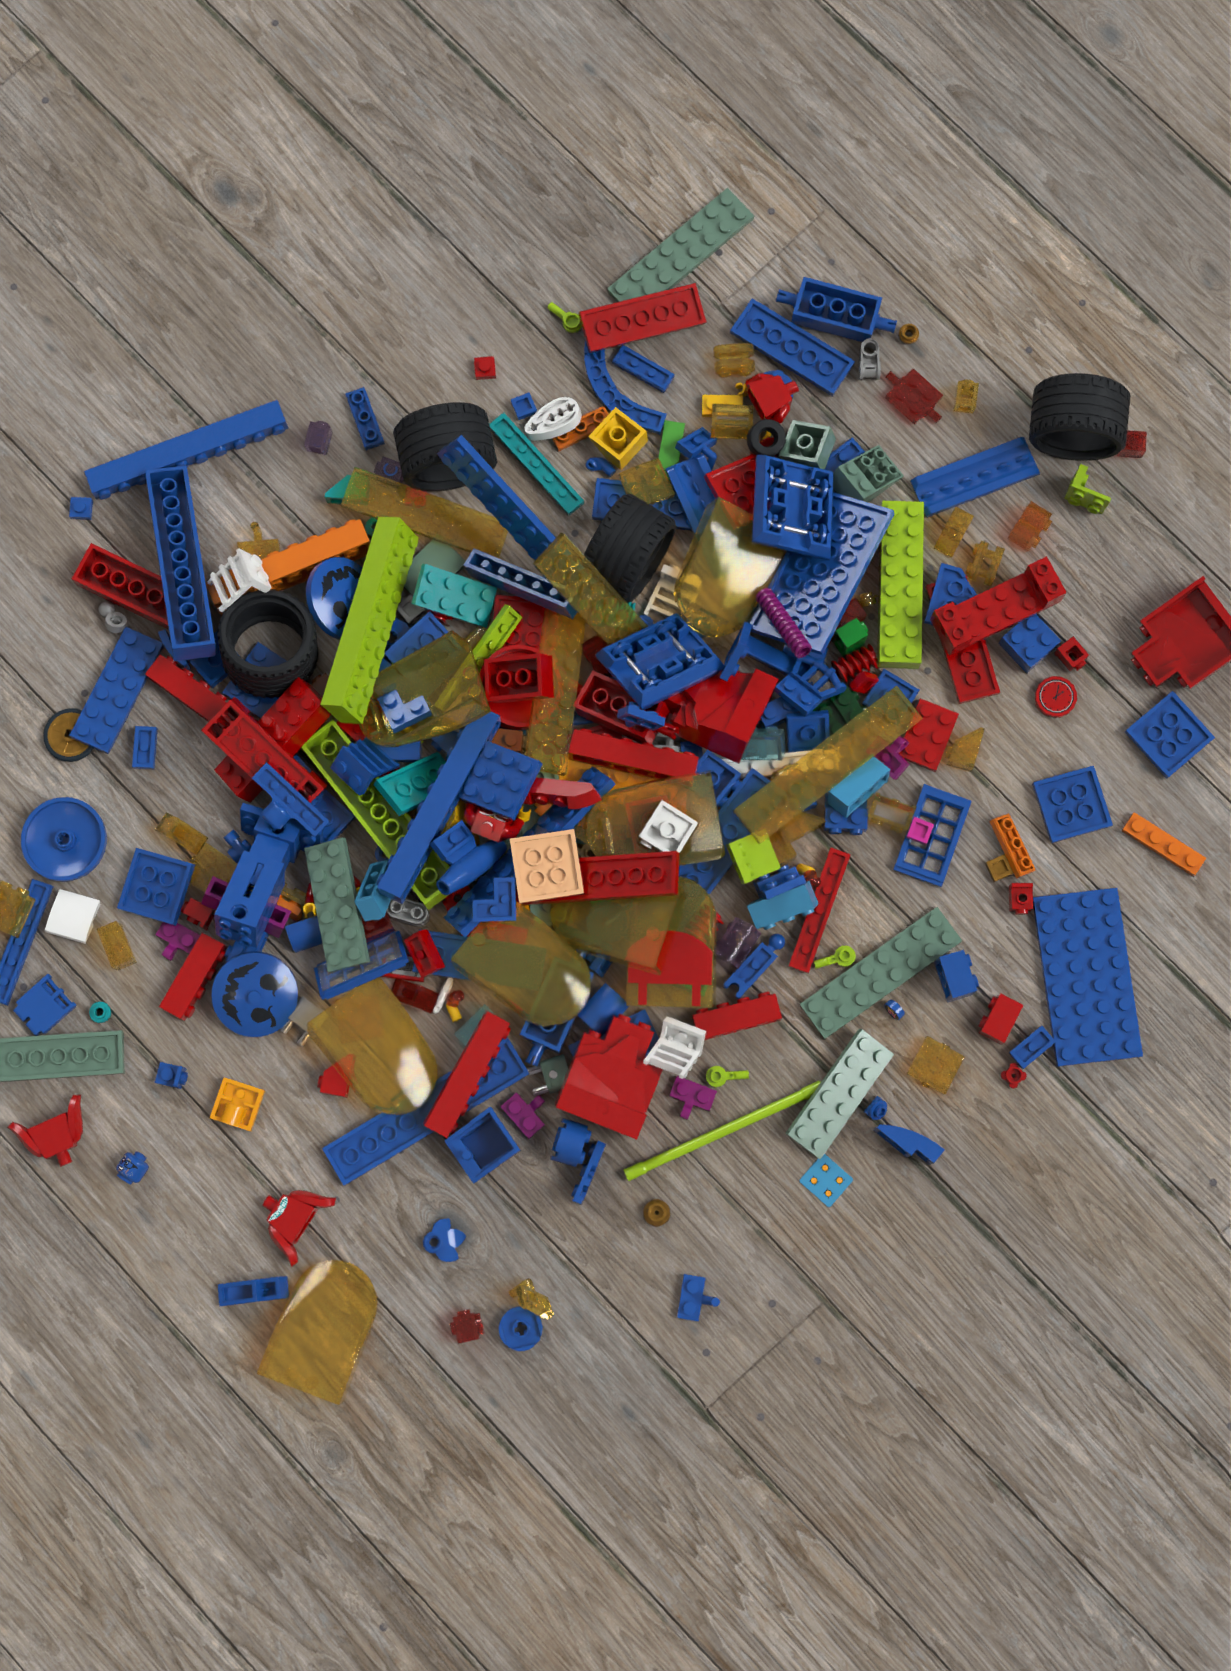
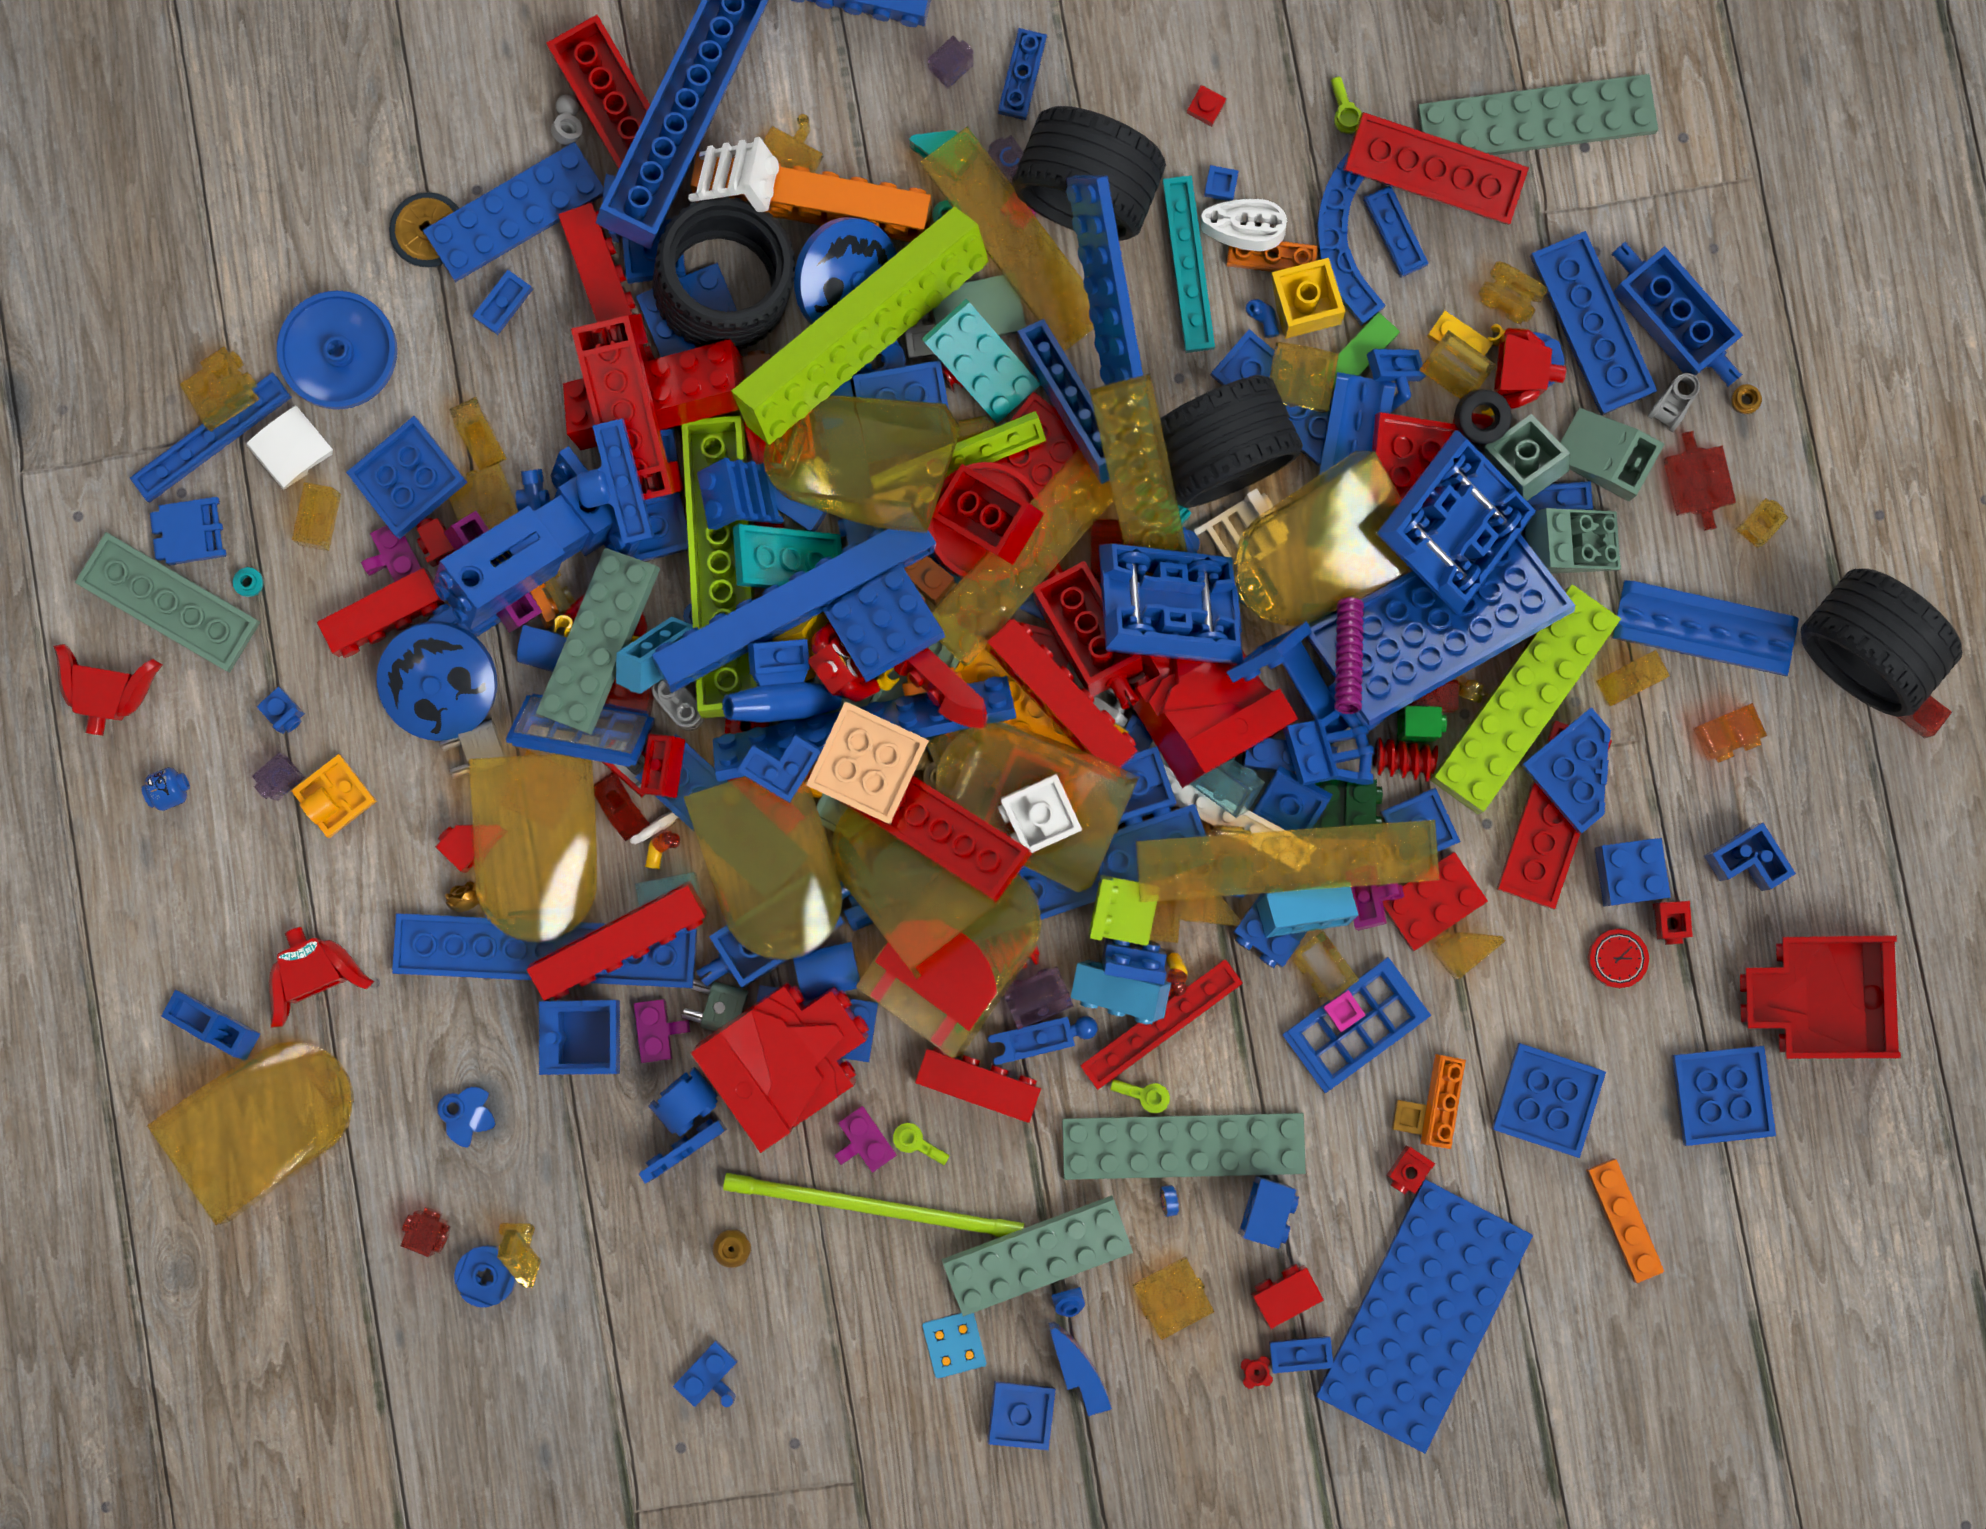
camera: 30 degrees right, 5 degrees up
(195, 1116) = (277, 777): none -> clear purple brick
(356, 1112) = (462, 897): none -> pearl gold plate
(403, 715) = (825, 467): plate -> none
(635, 716) = (1091, 652): blue plate -> none
(677, 1047) = (890, 1070): white plate -> none
(853, 413) = (1610, 453): none -> sand green slope
(863, 682) = (1399, 788): red plate -> none
(894, 1194) = (1021, 1415): none -> blue plate
(974, 569) = (1648, 723): clear yellow brick -> none
(998, 607) = (1622, 807): red plate -> none
(1085, 497) = (1814, 734): lime bracket -> none
(1091, 584) = (1754, 851): none -> blue brick

